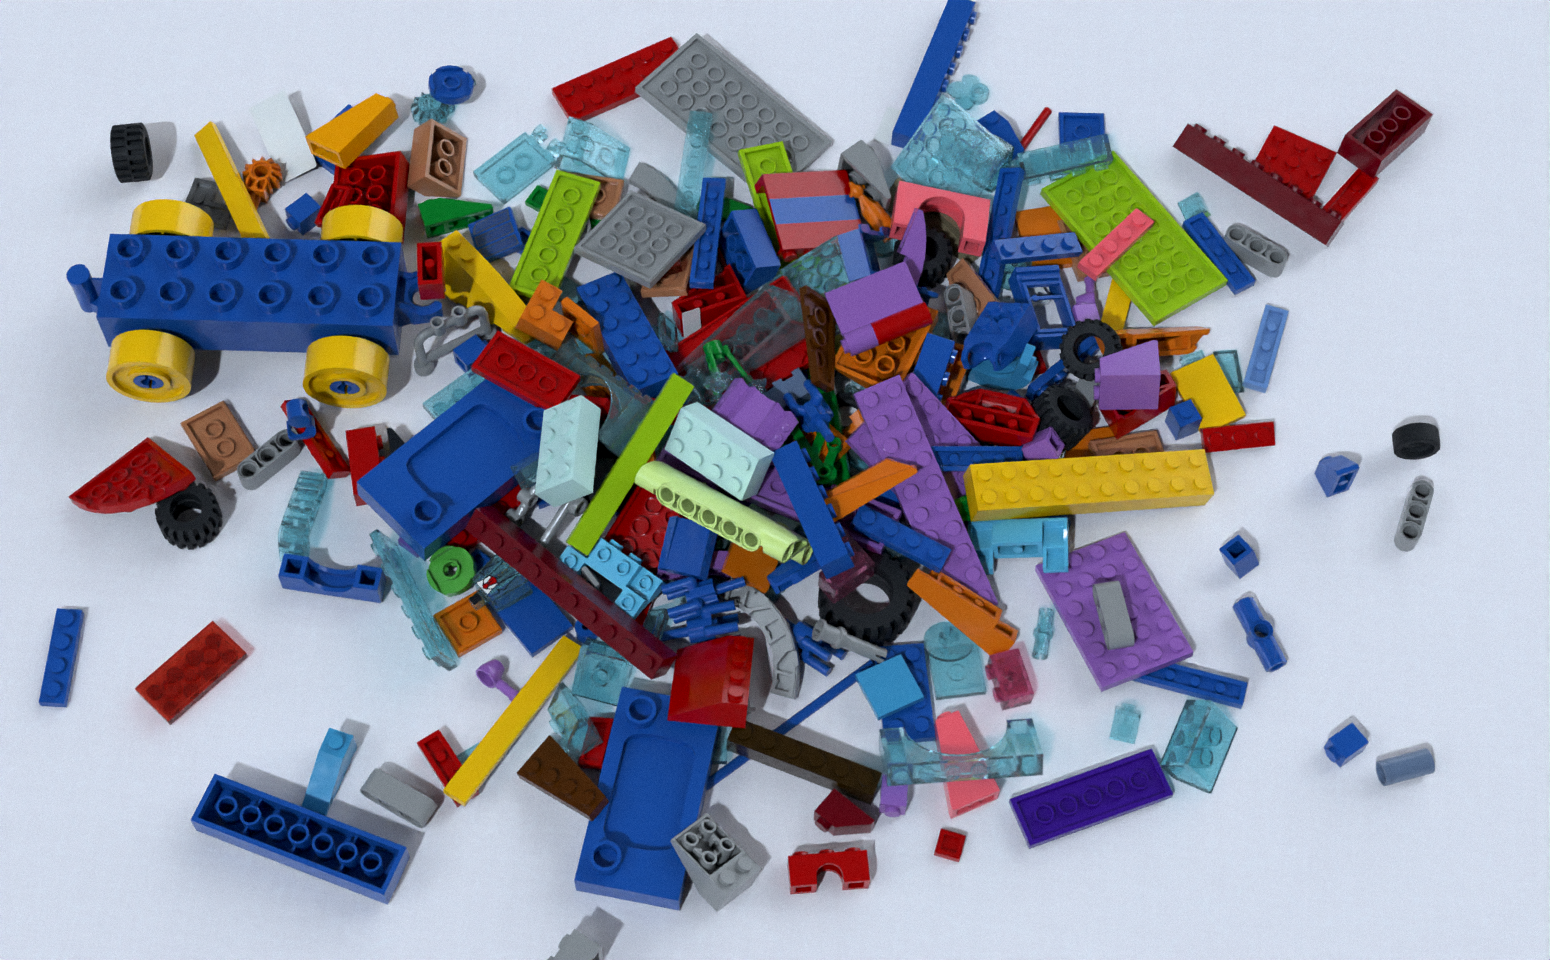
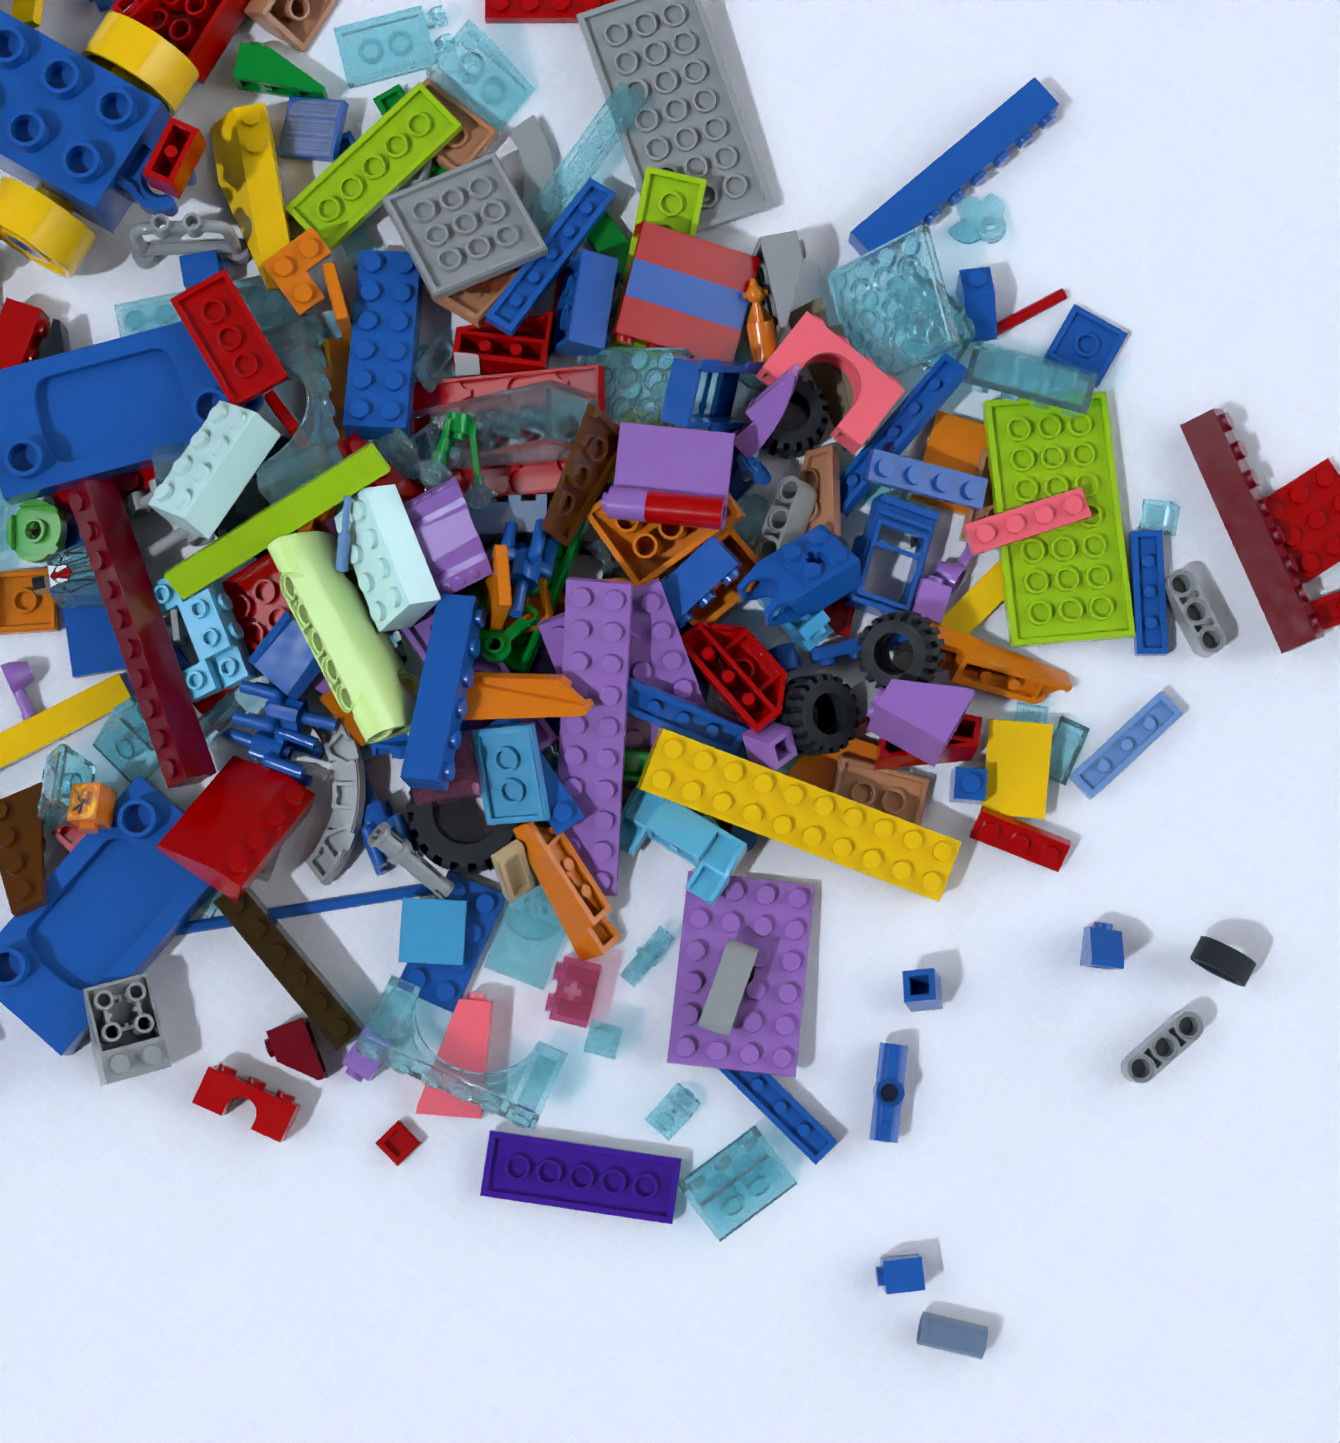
camera: 30 degrees right, 20 degrees up
(603, 719) = (91, 807): none -> orange brick
(684, 450) = (344, 539): none -> medium blue piece
(809, 431) = (498, 588): none -> orange tile
(887, 542) = (510, 774): none -> dark azure tile
(921, 616) = (513, 870): none -> tan tile
(1049, 698) = (603, 1039): none -> clear light blue brick

